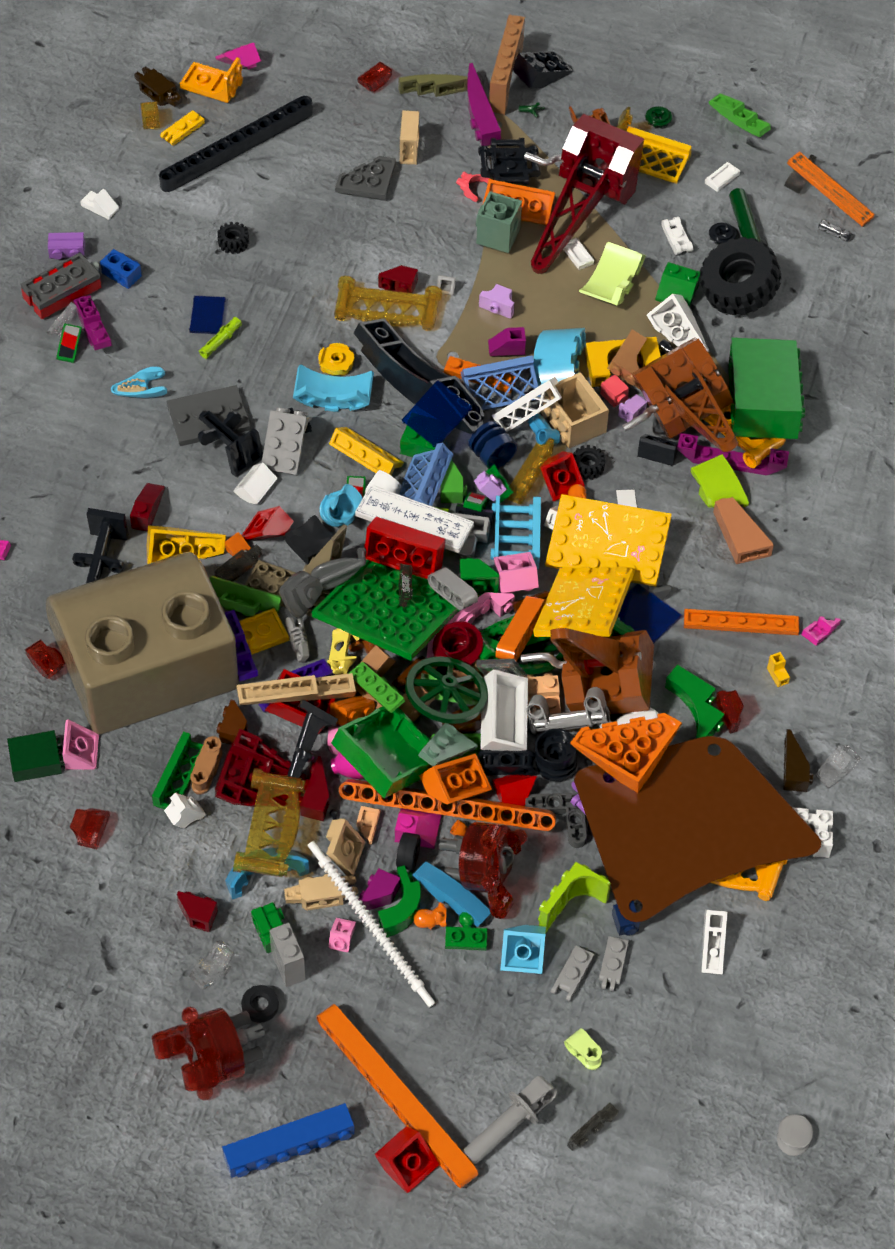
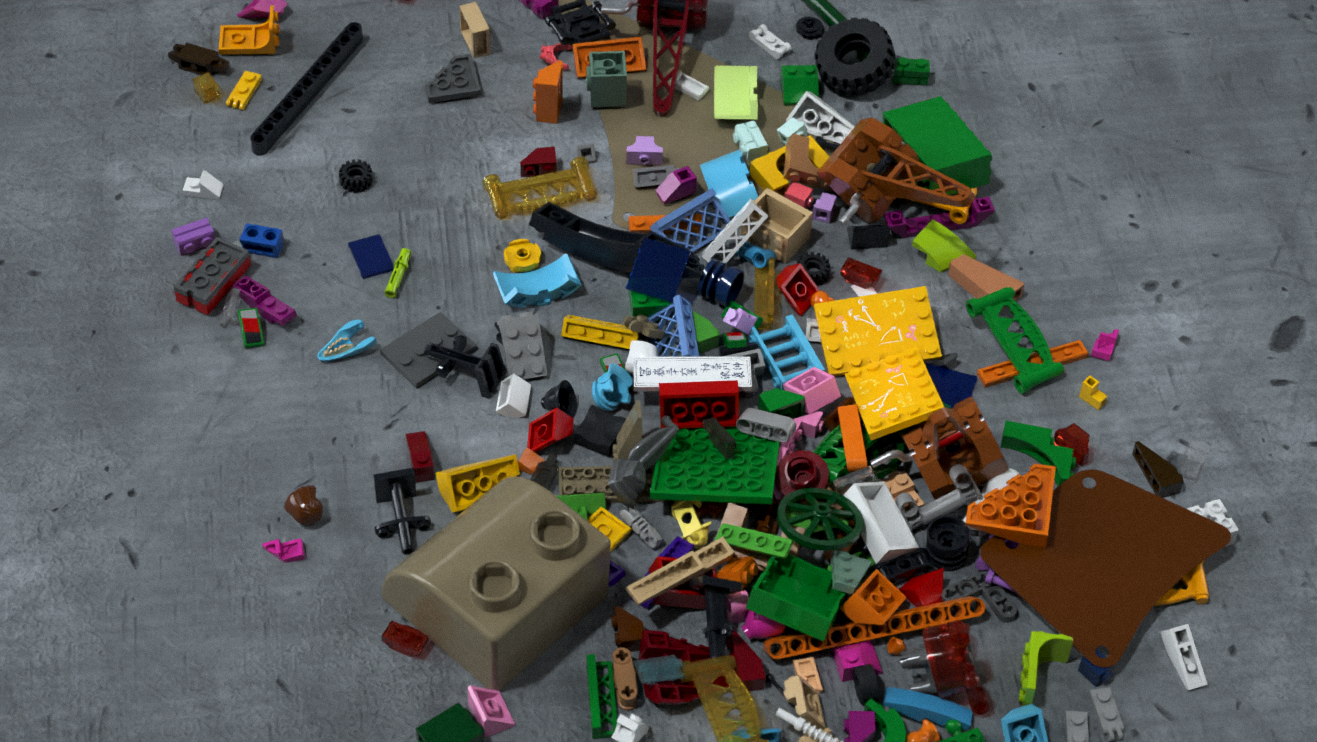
camera: 25 degrees left, 5 degrees down
(23, 514) = (304, 505): none -> reddish brown hair
(232, 767) = (659, 669): none -> clear light blue hinge
(294, 501) = (562, 398): none -> black hat
(401, 459) = (643, 325): none -> dark tan hinge
(439, 217) = (548, 93): none -> orange slope
(491, 325) = (652, 175): none -> light grey hinge
(601, 323) = (750, 140): none -> light aqua brick
(628, 481) = (860, 273): none -> clear red slope
(644, 326) = (791, 126): none -> light aqua brick
(731, 630) = (1029, 373): none -> green piece
(791, 307) = (911, 71): none -> green brick

